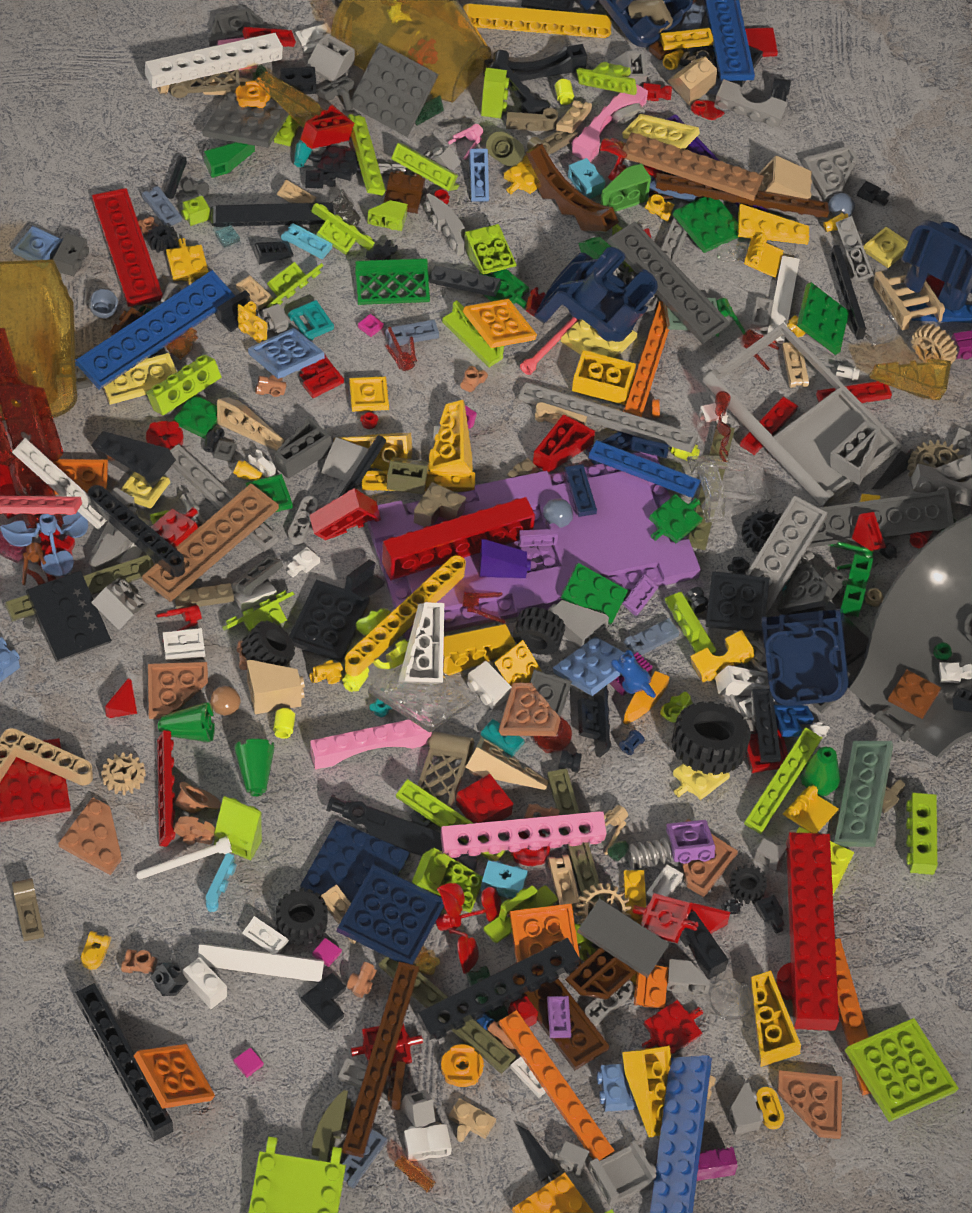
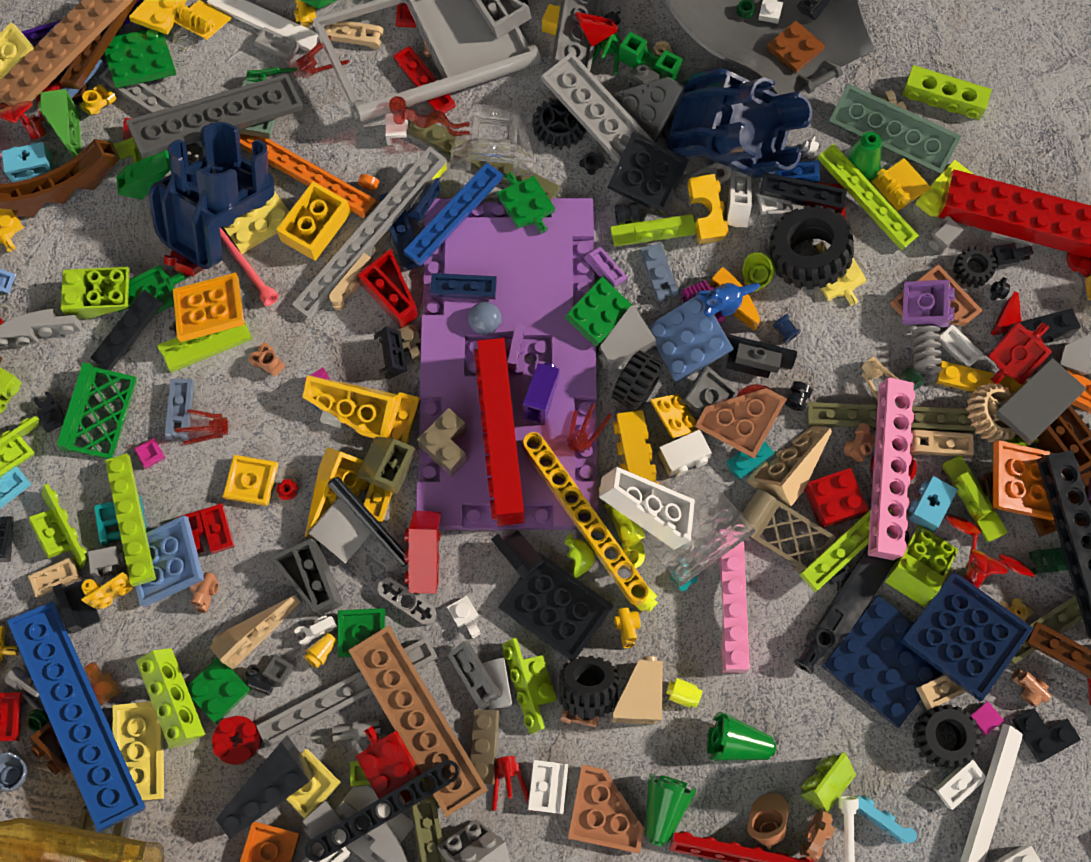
camera: 70 degrees left, 15 degrees up
(225, 700) = (635, 755): medium nougat hair -> none
(311, 323) = (130, 520): none -> lime plate
(507, 457) = (392, 352): none -> black hinge
(593, 720) = (758, 358): none -> dark grey plate

